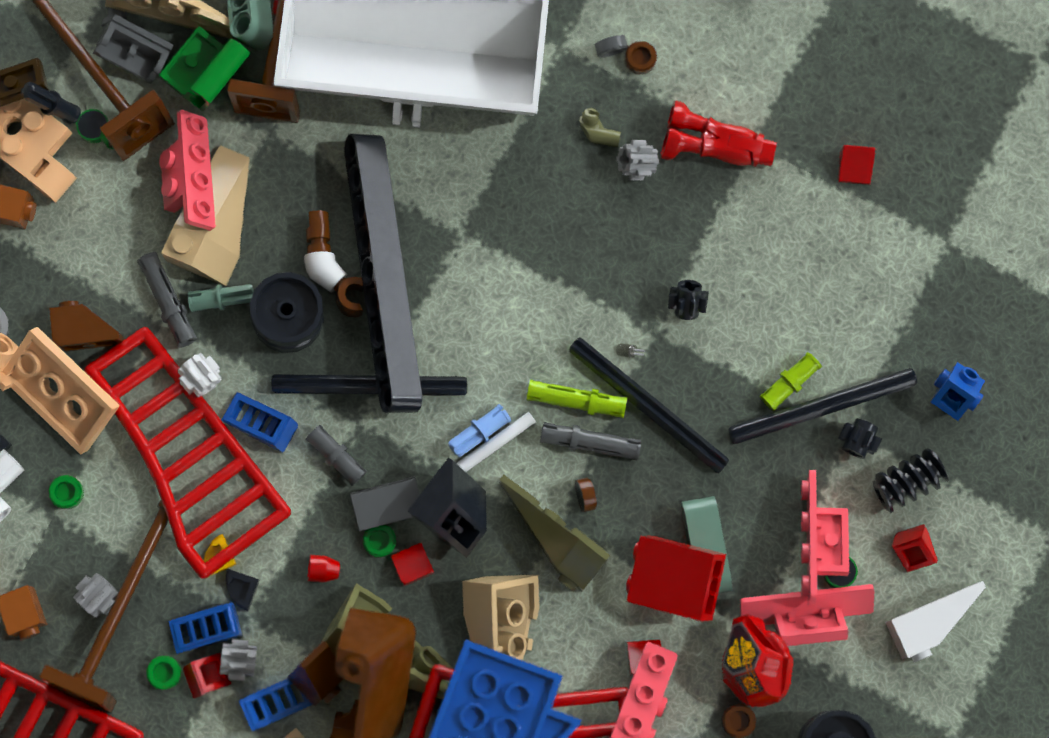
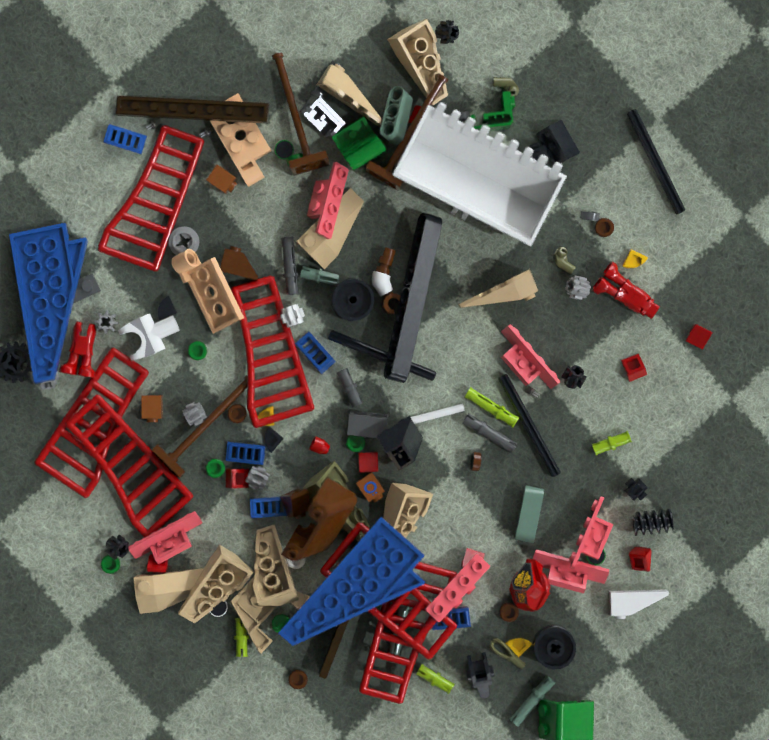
camera: 30 degrees right, 10 degrees up
(51, 103) = (266, 131): black axle -> none
(167, 569) = (237, 413): none -> reddish brown tile
(432, 603) = (371, 487): none -> dark orange brick
(479, 431) = (431, 404): light blue axle -> none
(540, 198) = (511, 290): none -> tan wedge
(568, 550) = (453, 487): olive wedge -> none
(601, 304) = (525, 361): none -> coral bracket
(675, 578) = (505, 526): red brick -> none
(707, 88) = (634, 259): none -> yellow tile
(776, 252) = (634, 367): none -> red slope
(822, 406) = (627, 463): black axle -> none
(958, 390) = (699, 484): blue brick -> none

